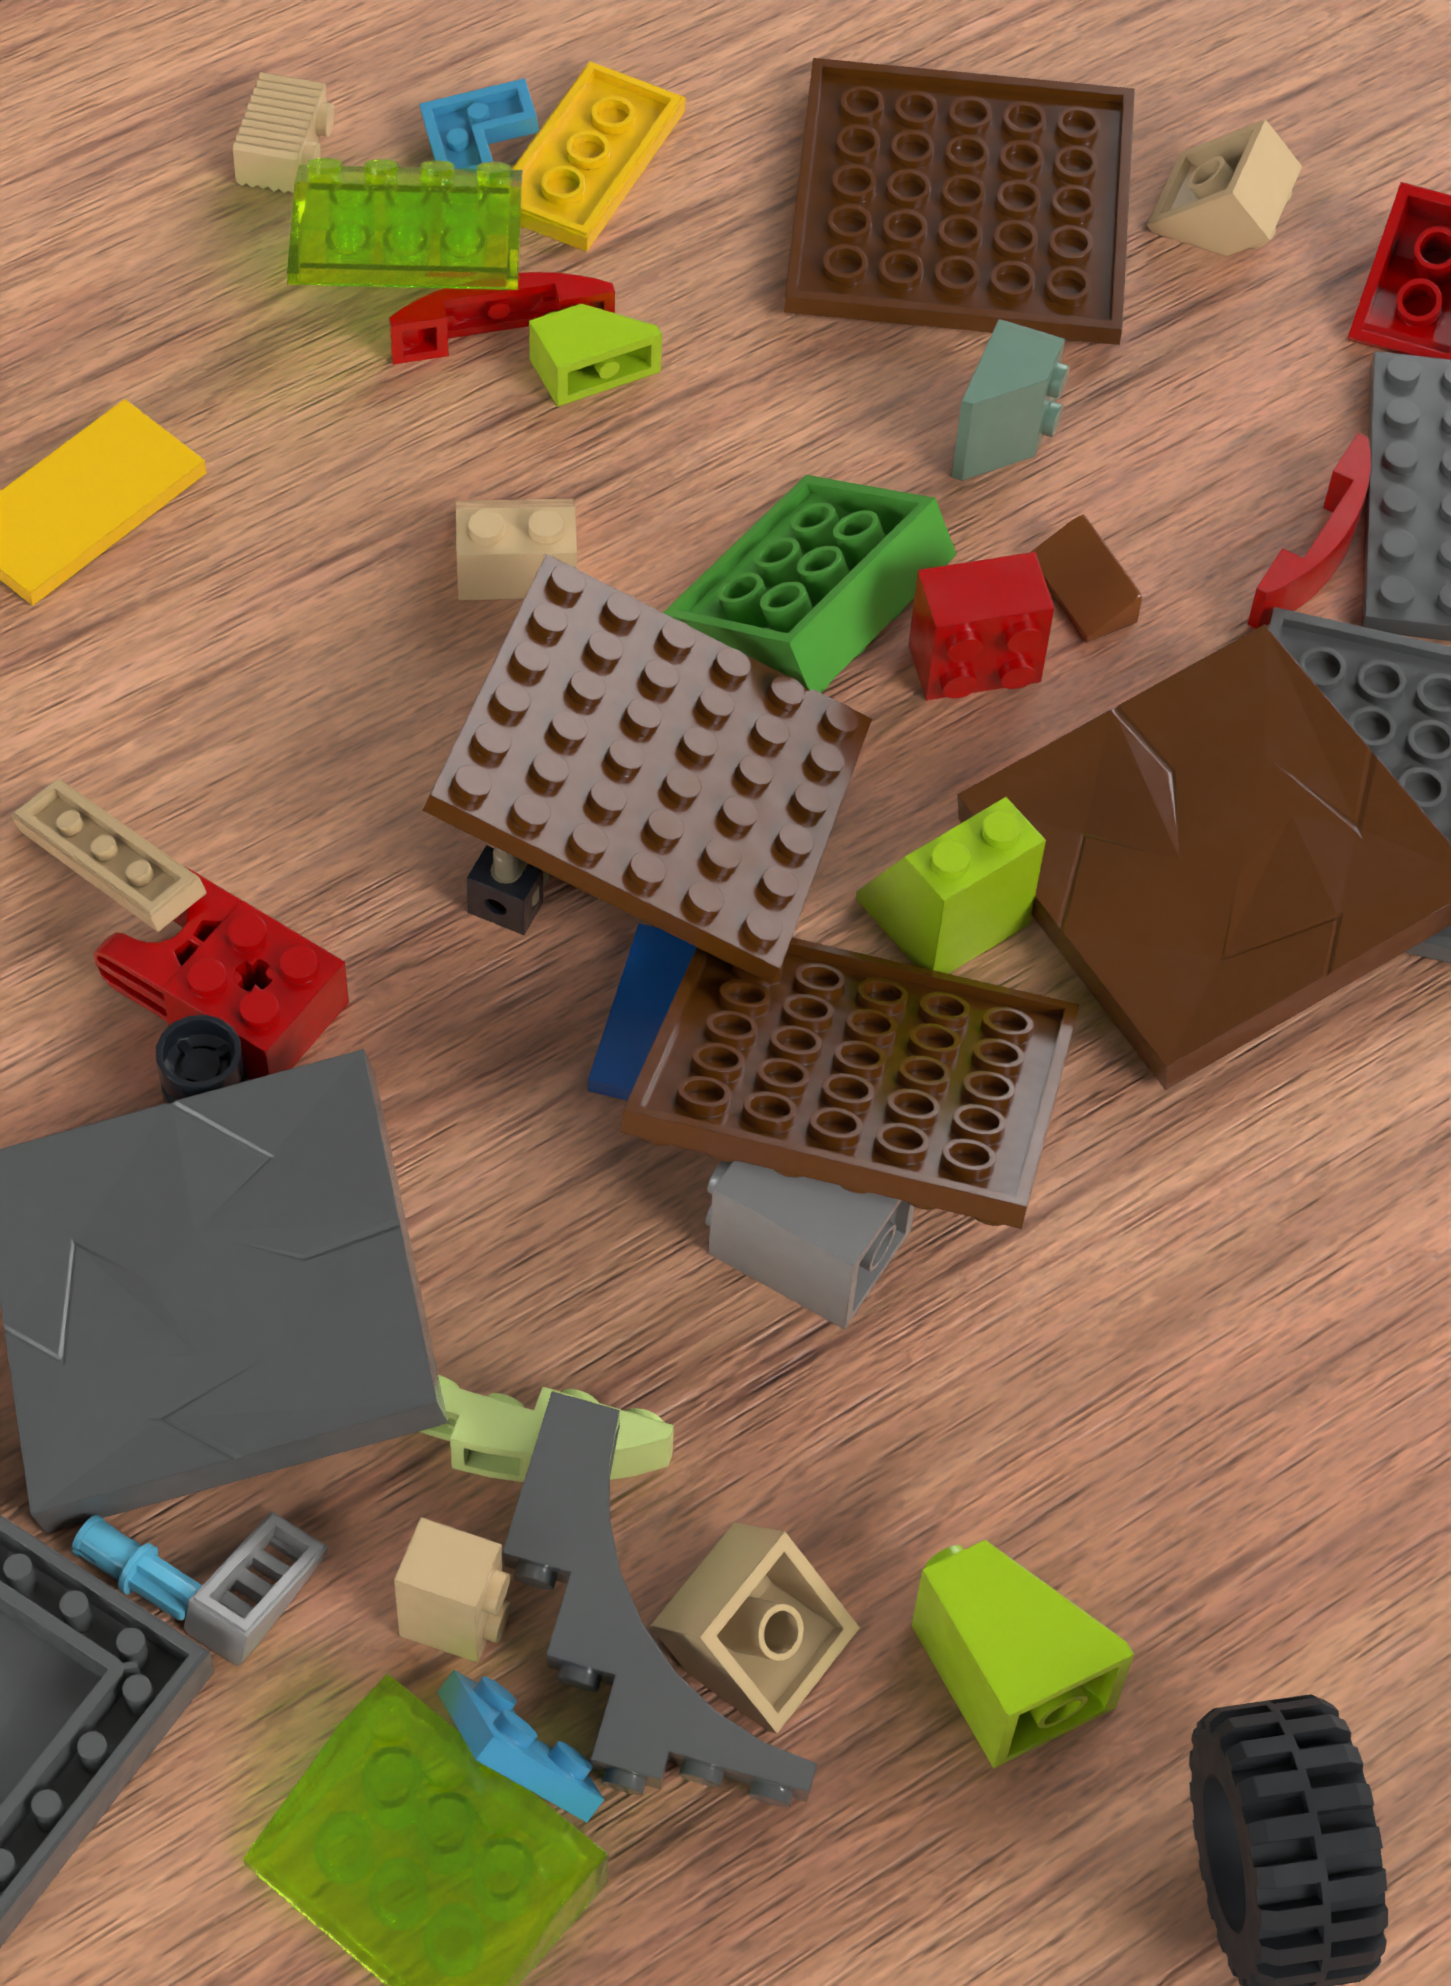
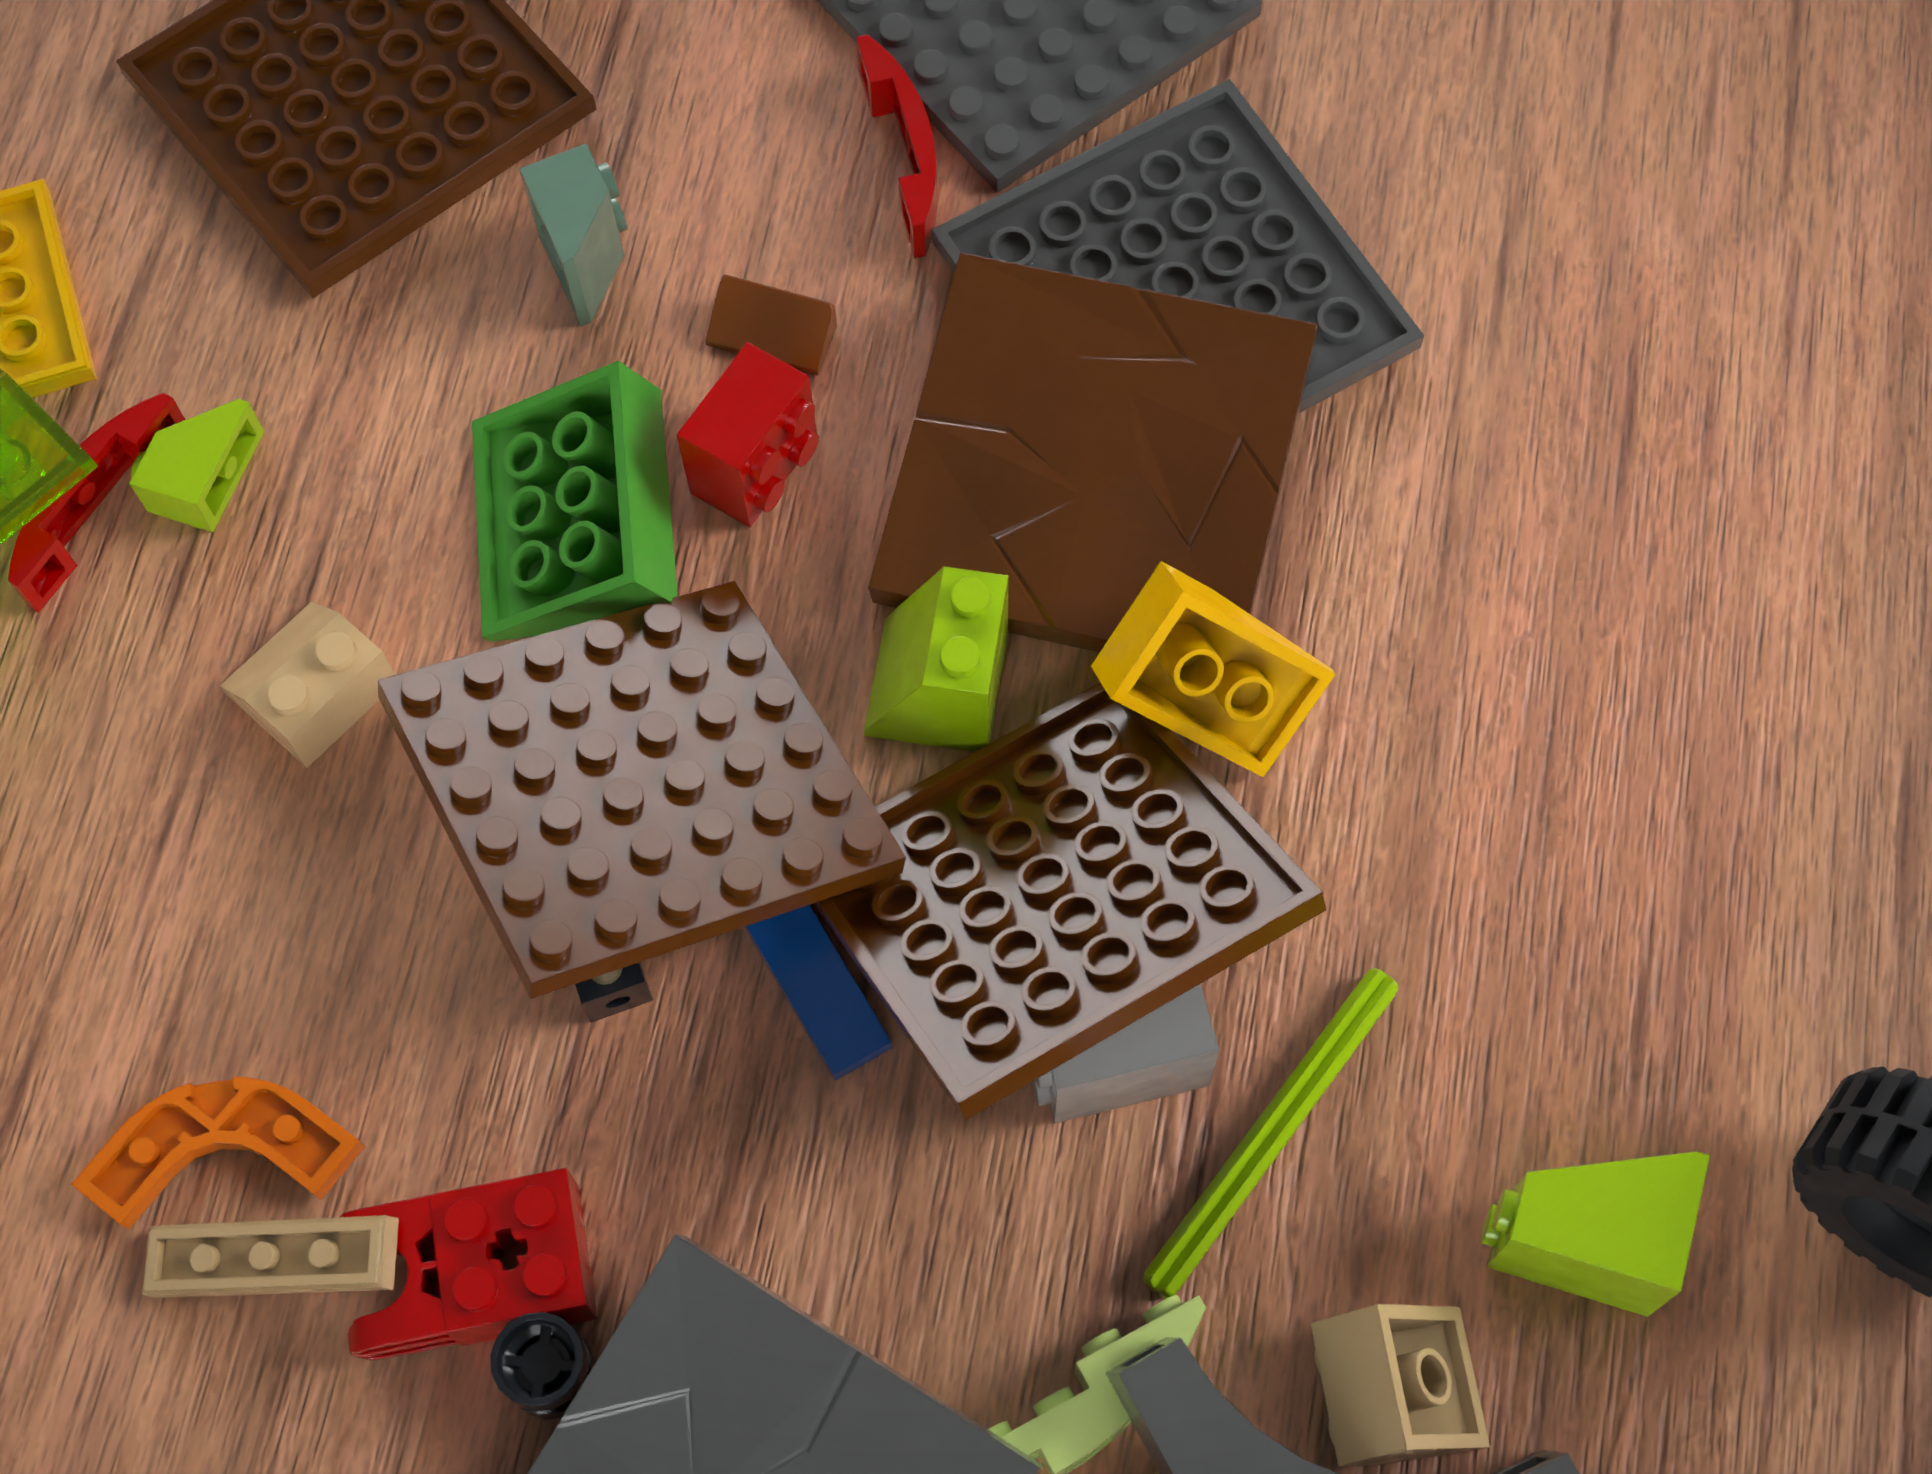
camera: 40 degrees left, 10 degrees up
(157, 746) = (210, 1118): none -> orange plate
(855, 1391) = (1269, 1134): none -> lime axle
(1139, 1046) = (1210, 671): none -> yellow slope

